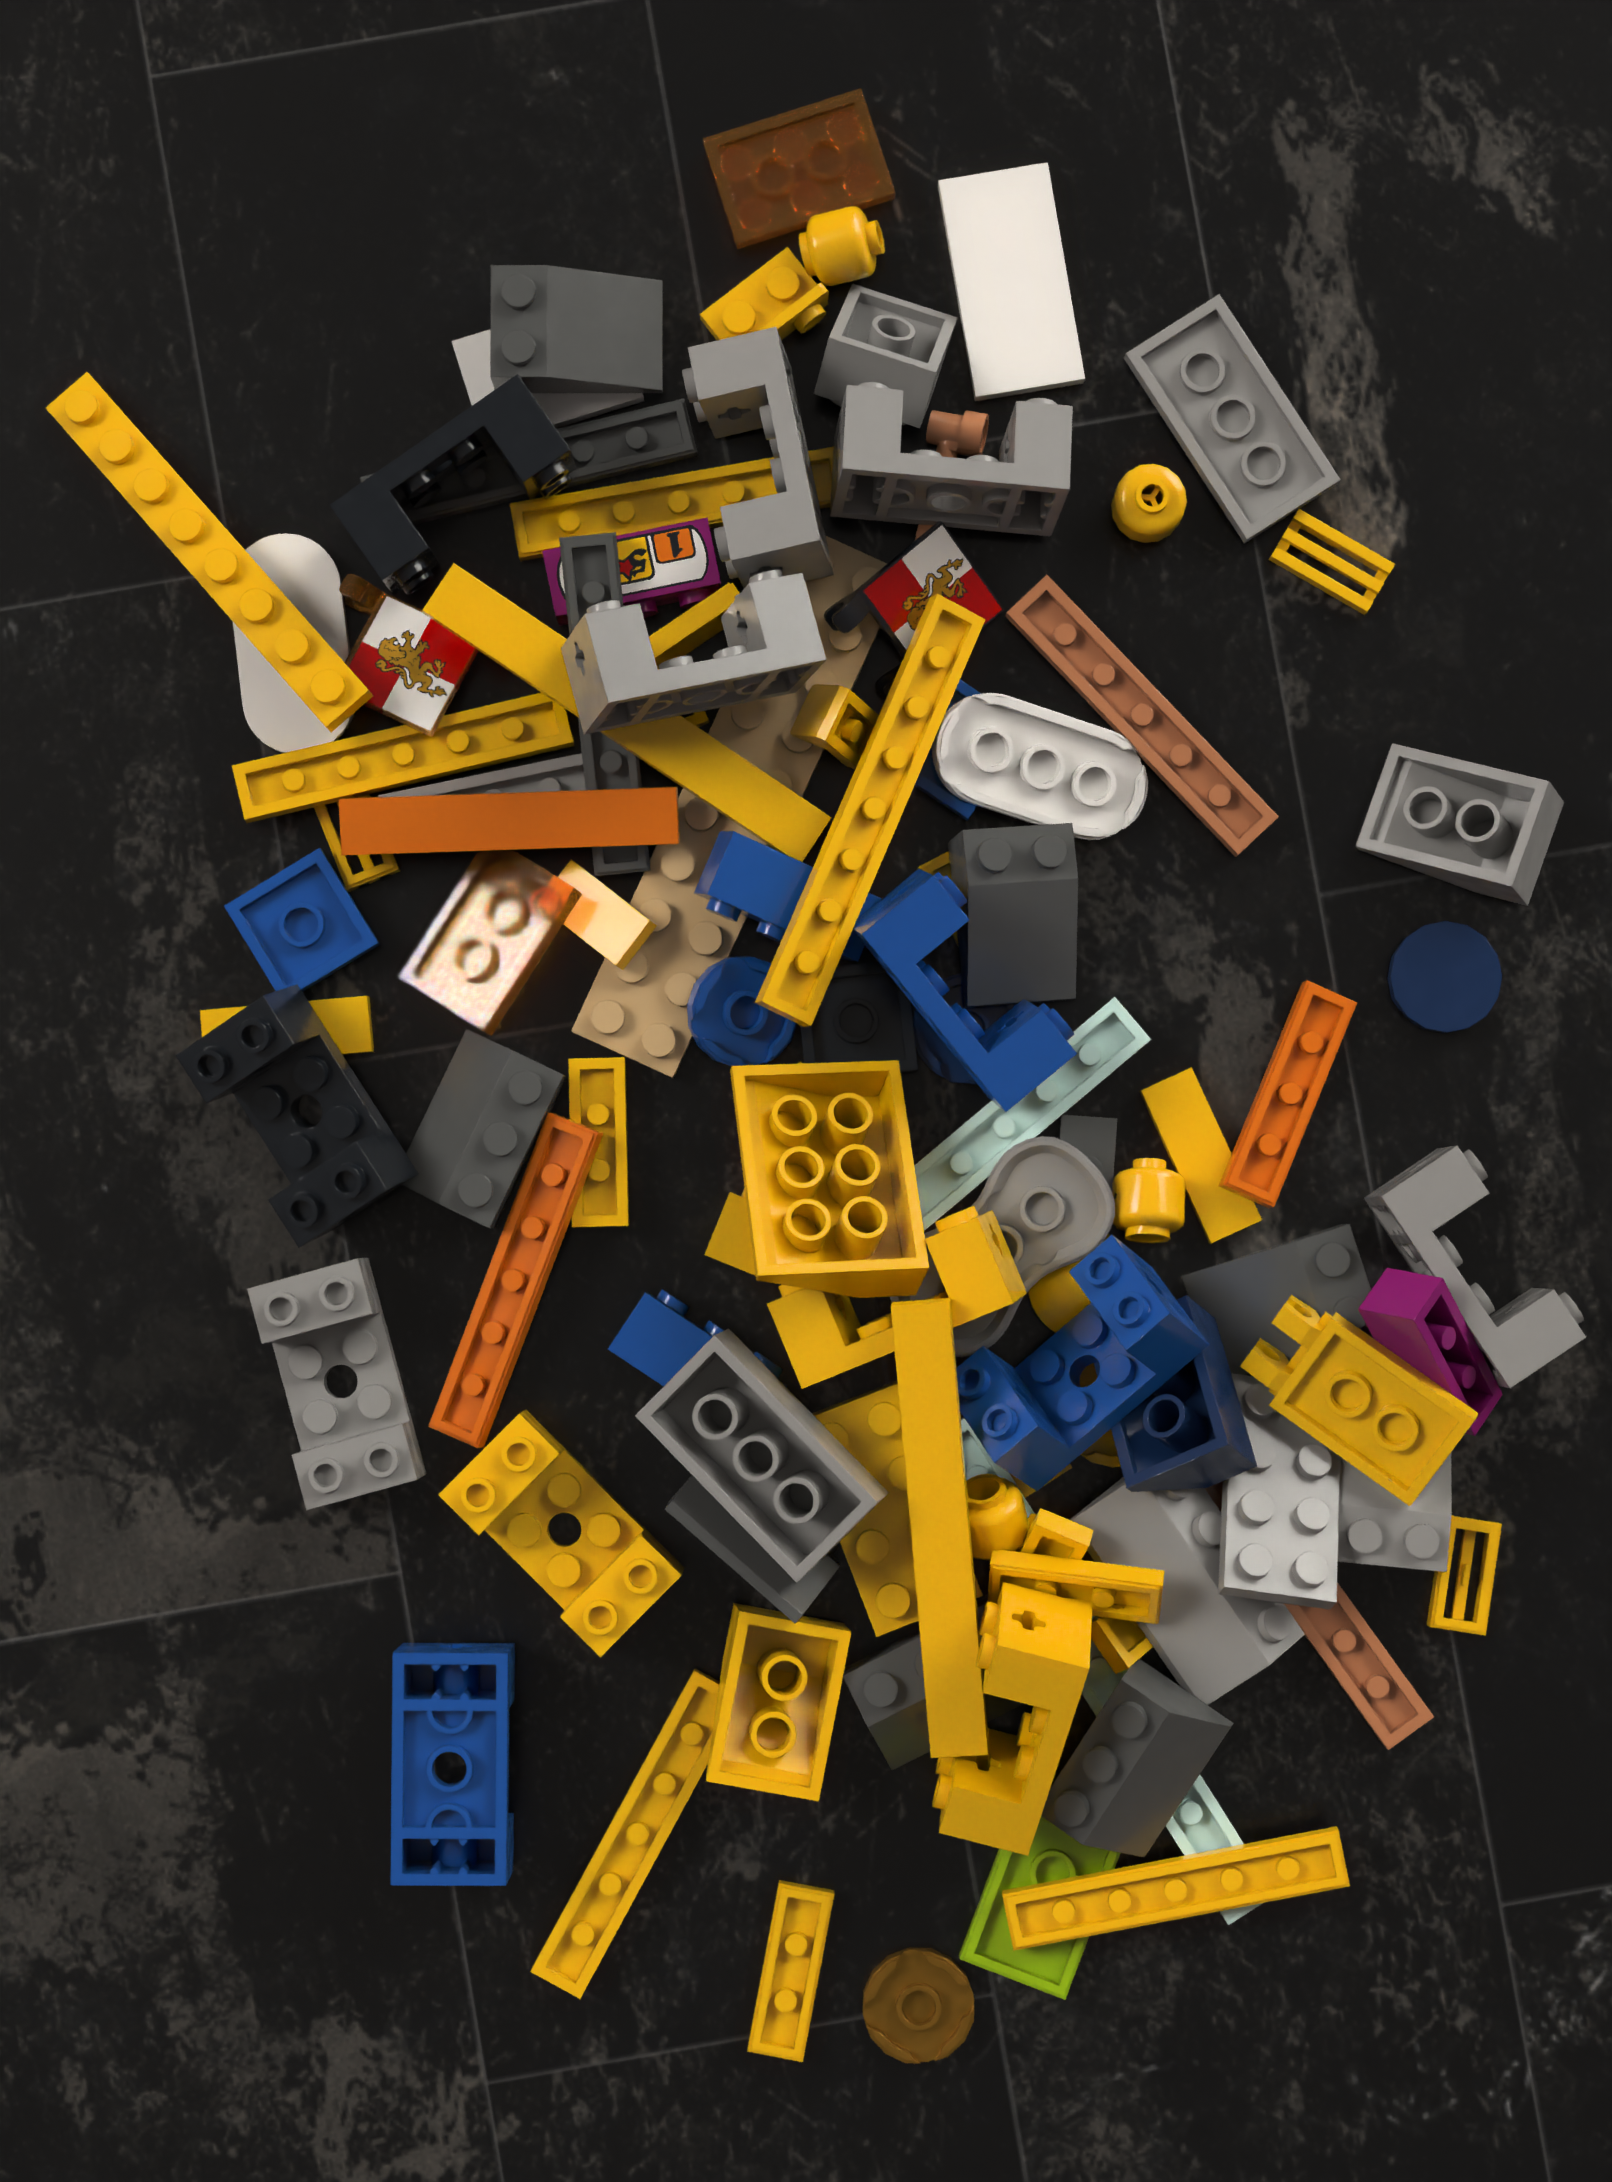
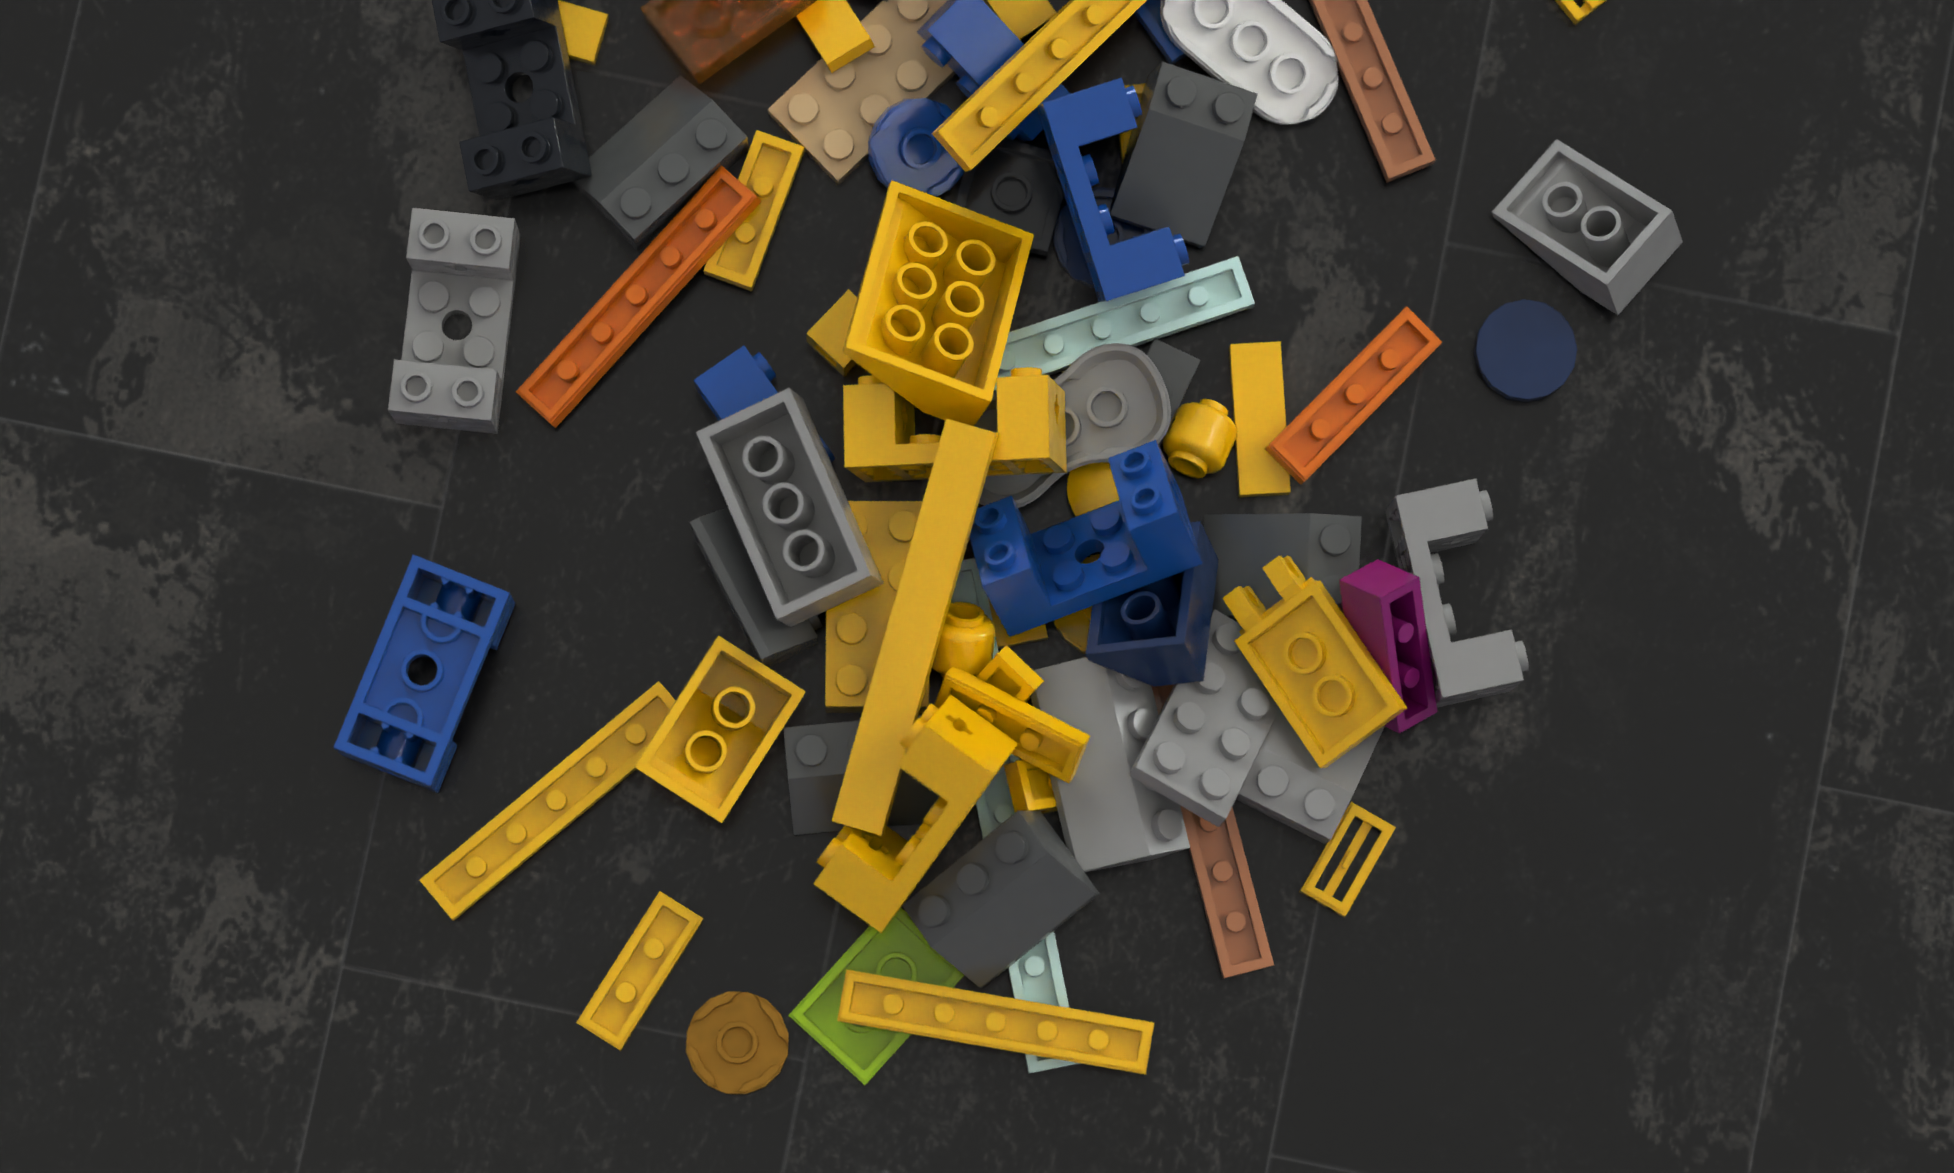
camera: 15 degrees right, 5 degrees down
(601, 1578) = (579, 468): yellow plate -> none

